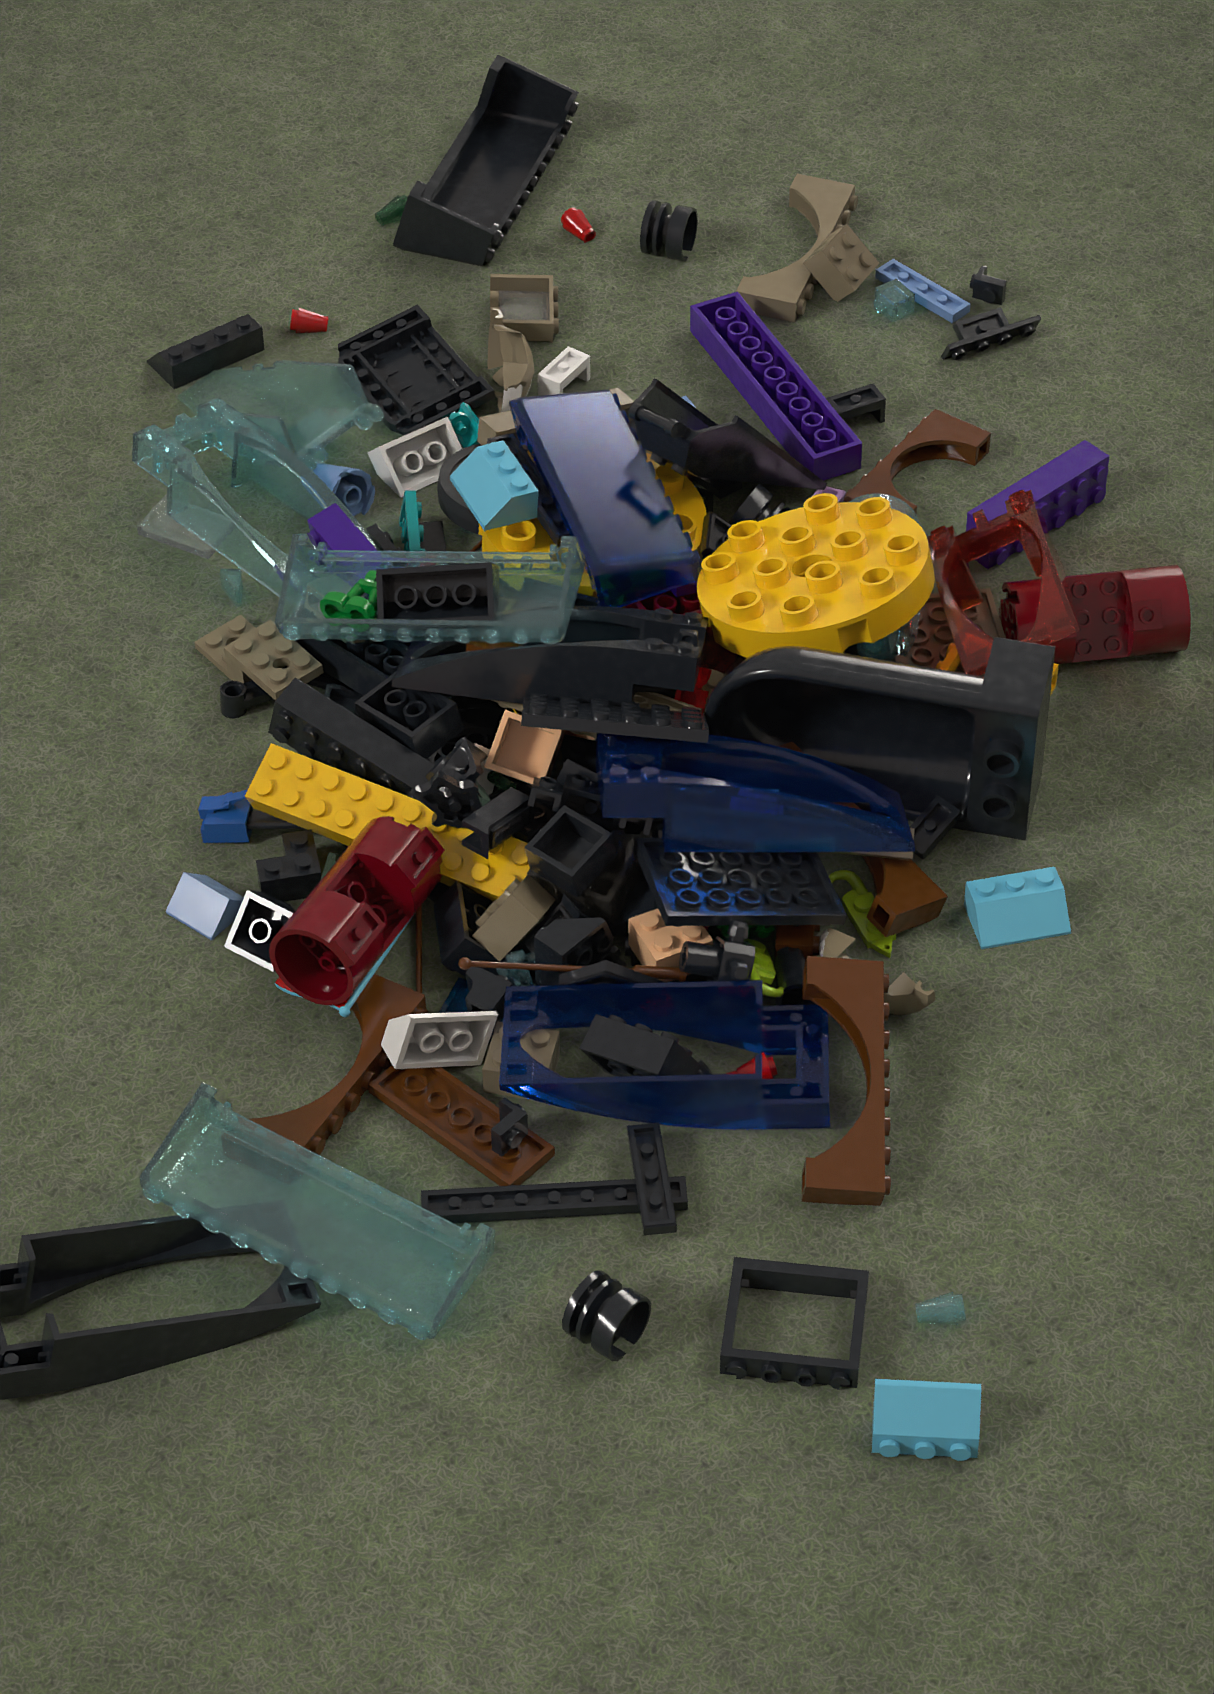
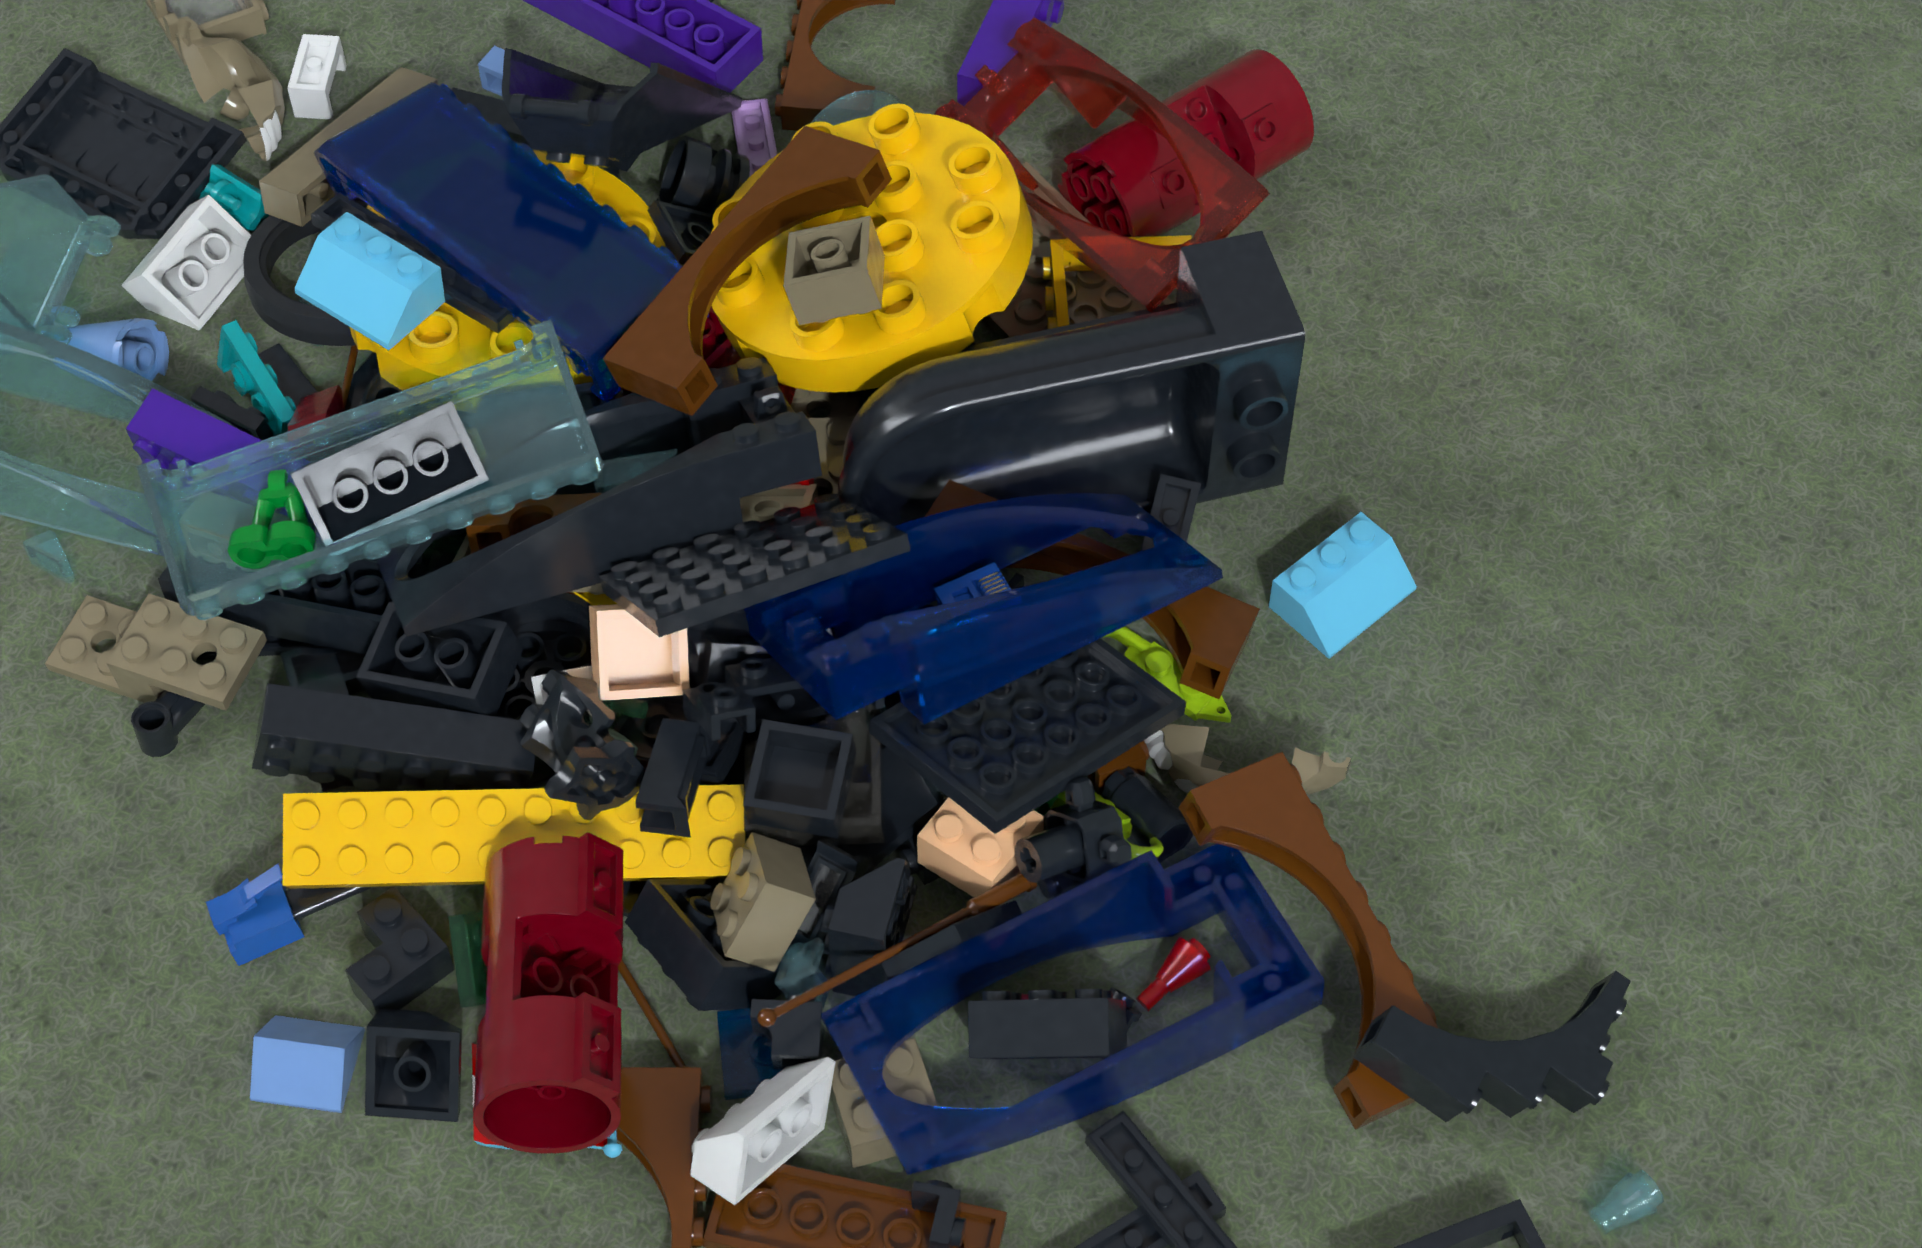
camera: 30 degrees left, 10 degrees up
(644, 585) = (809, 178): none -> reddish brown arch
(766, 572) = (834, 270): none -> dark tan brick
(912, 1203) = (1455, 1071): none -> black arch

